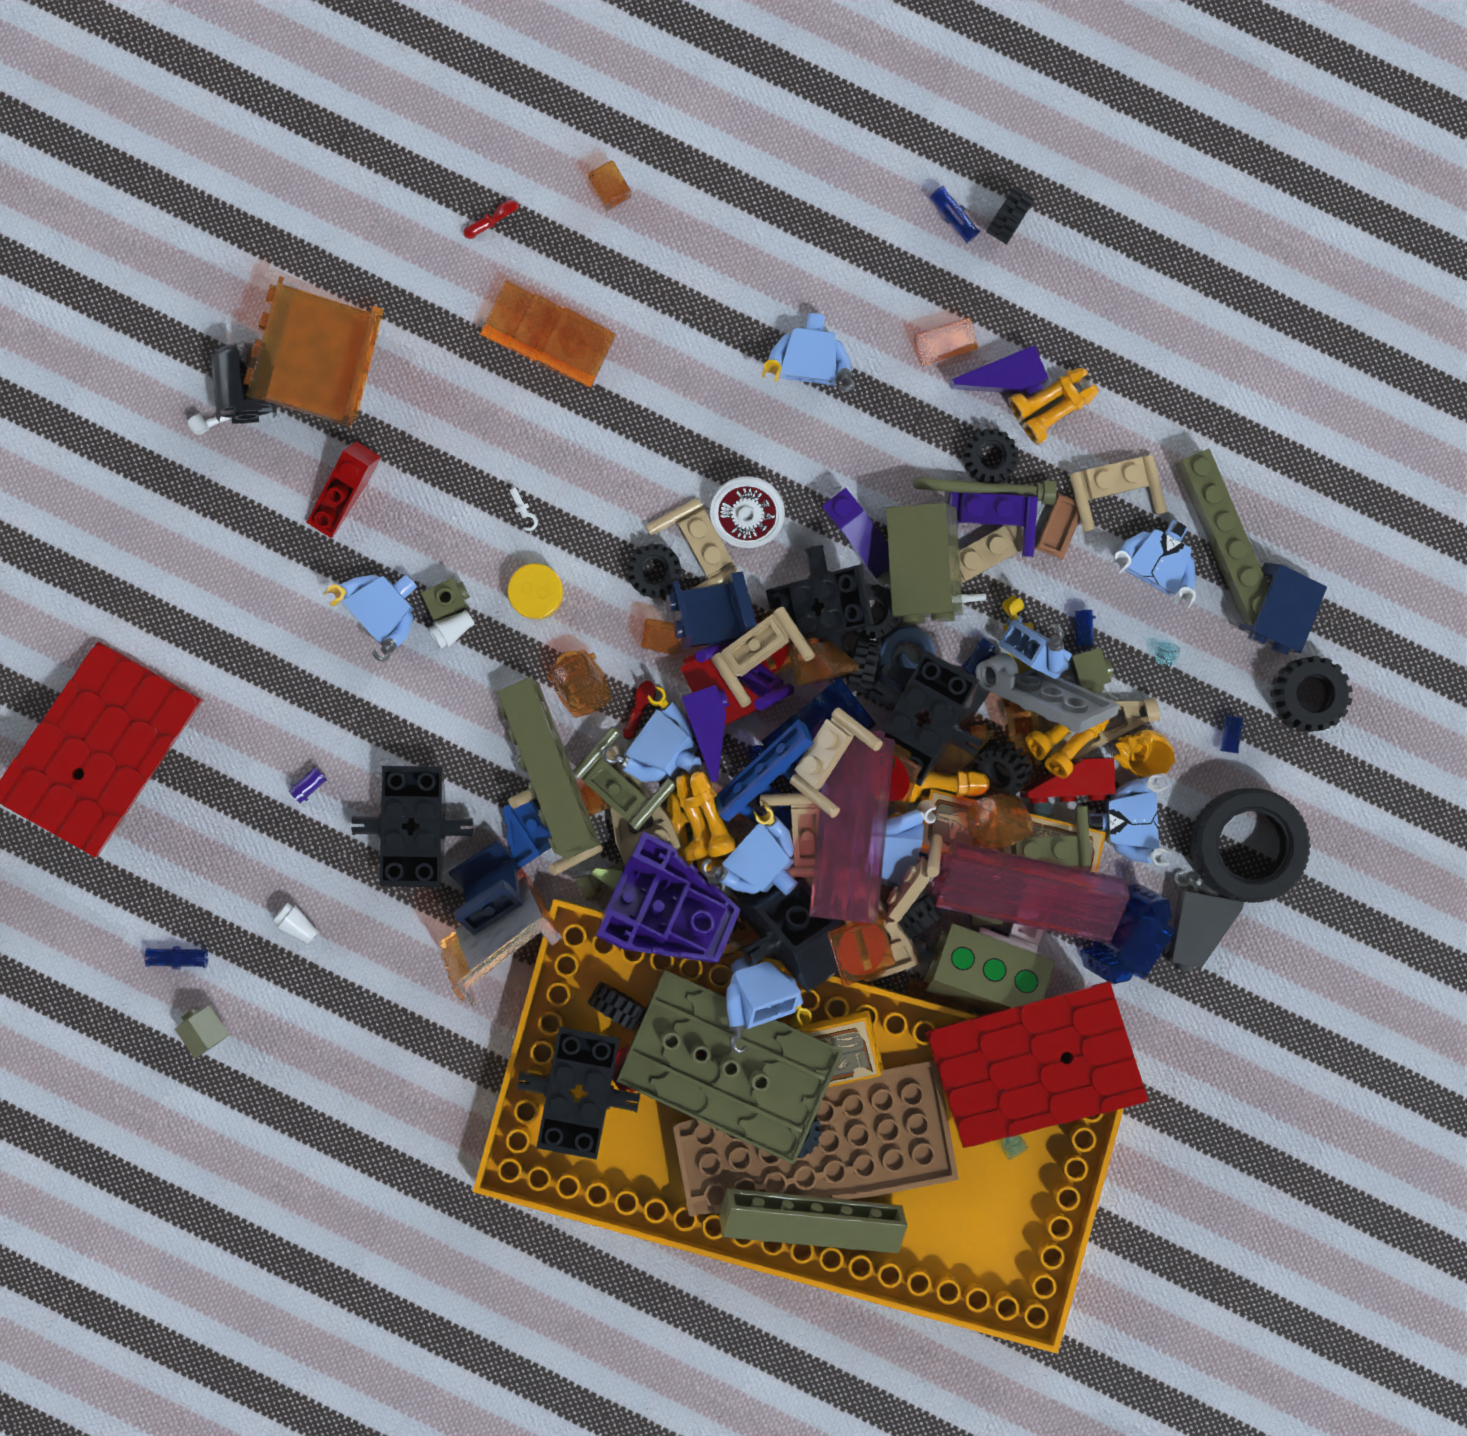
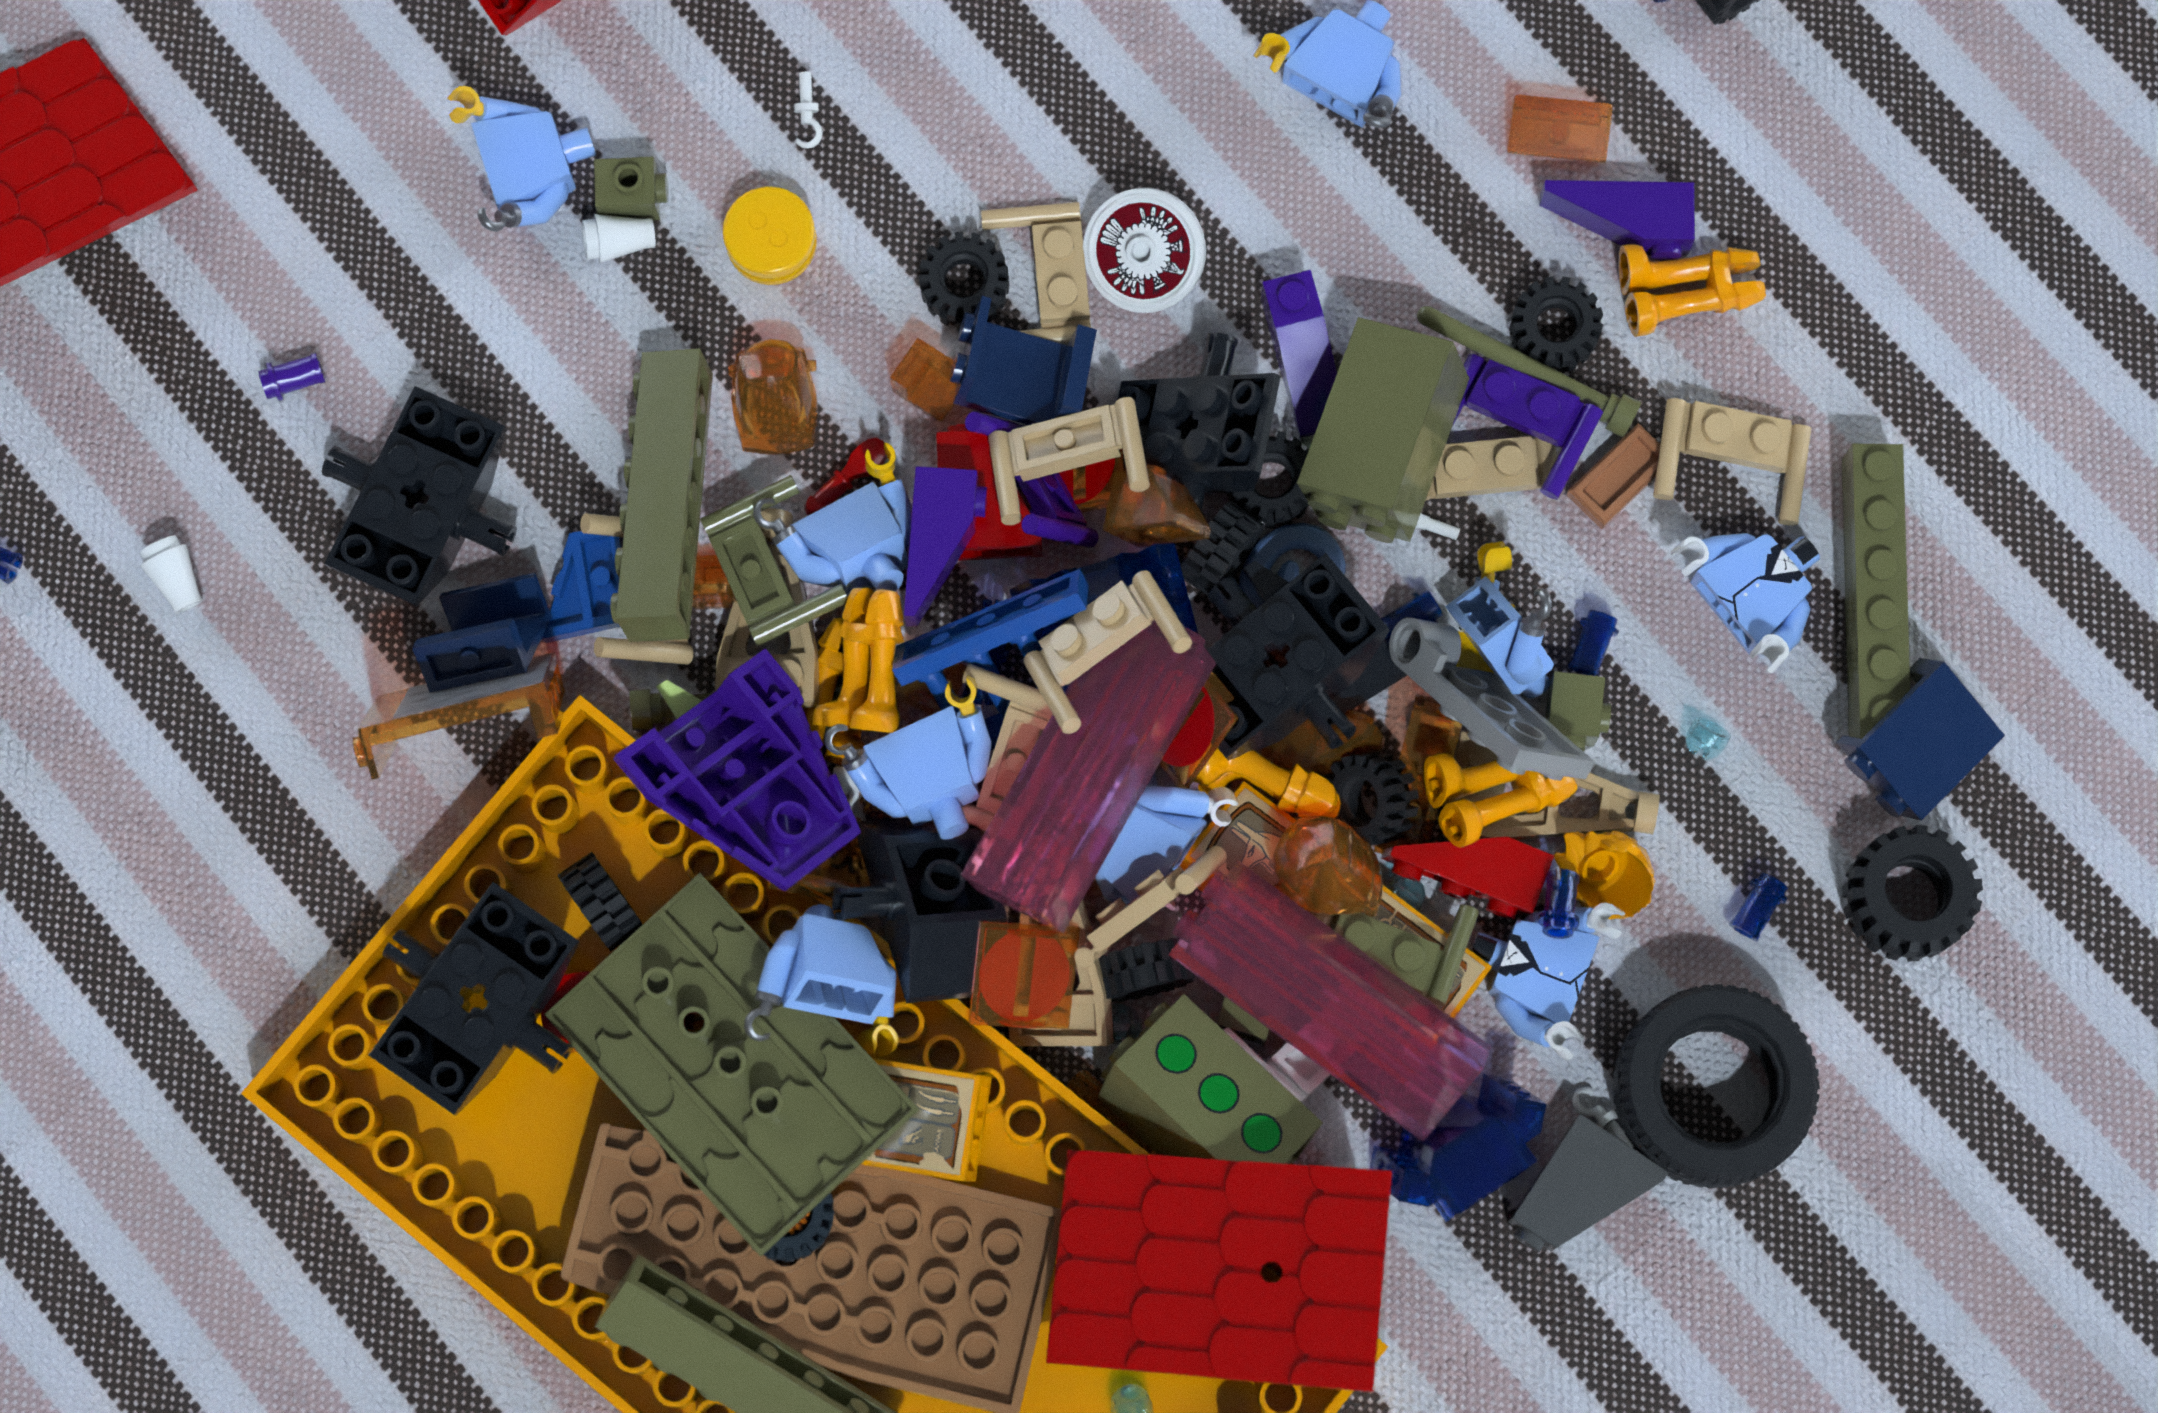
camera: 30 degrees right, 10 degrees down
(1129, 784) = (1560, 905): none -> clear blue pin

